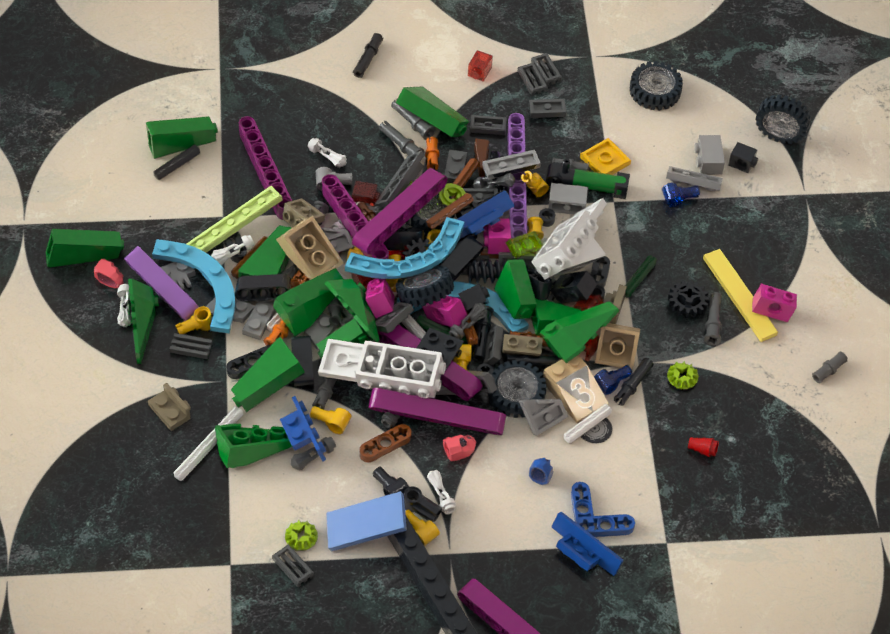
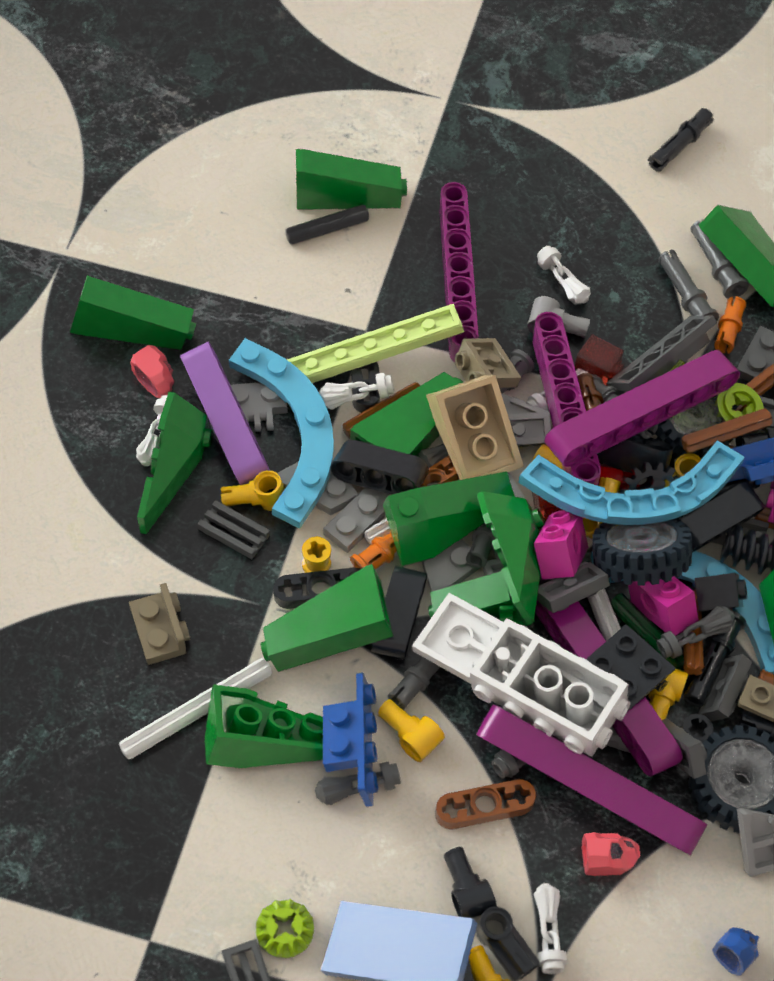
camera: 20 degrees right, 5 degrees up
(244, 344) = (316, 555): none -> yellow bush

